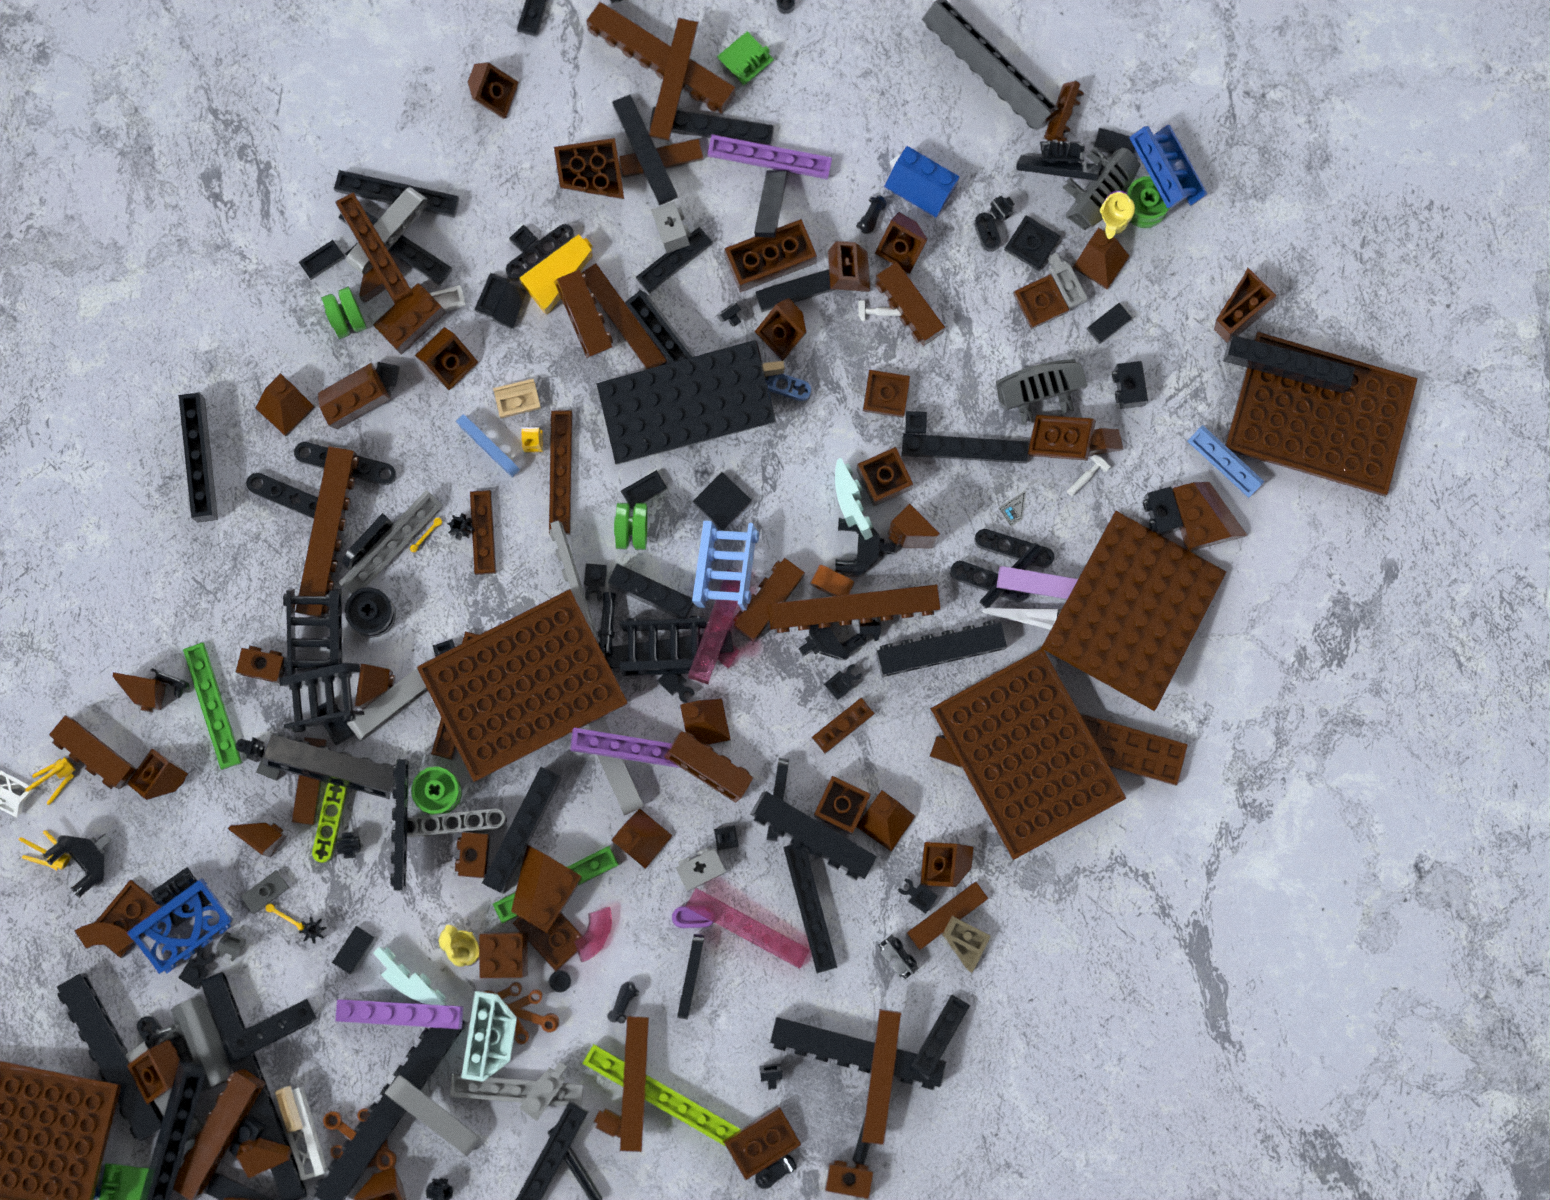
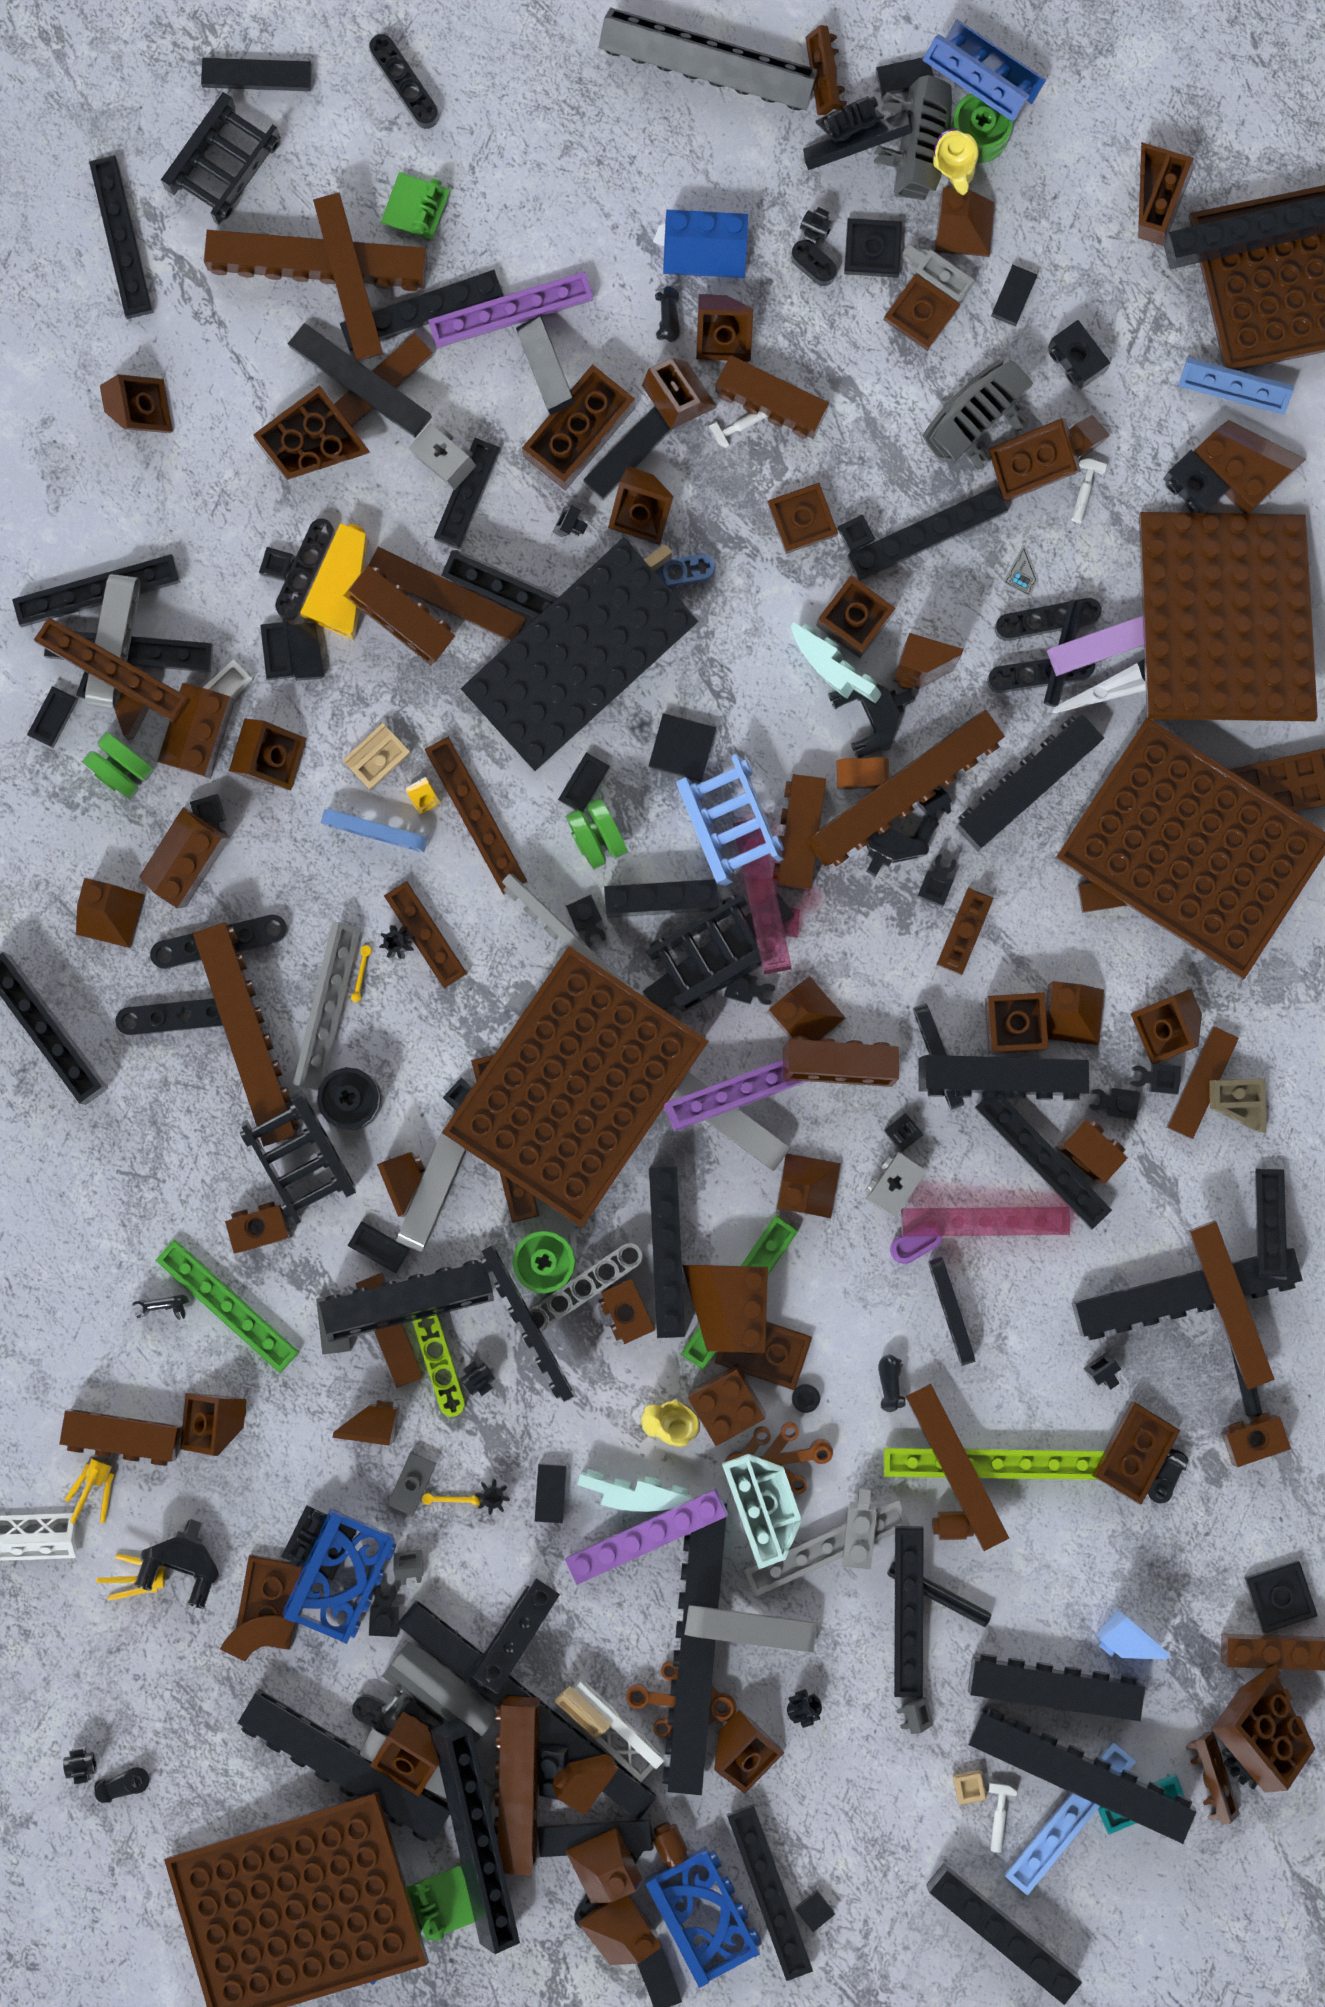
camera: 25 degrees left, 5 degrees up
(142, 691) = (138, 1335): reddish brown slope -> none
(253, 749) = (306, 1330): black hinge -> none
(311, 680) = (328, 1214): black fence -> none
(366, 541) = (300, 1019): black tile -> none
(595, 935) = (817, 1323): clear pink tile -> none
(607, 623) = (635, 972): black pin -> none
(845, 919) = (1092, 1151): none -> reddish brown brick
(883, 899) = (1120, 1103): none -> black plate
(905, 964) = (1183, 1162): black hinge -> none

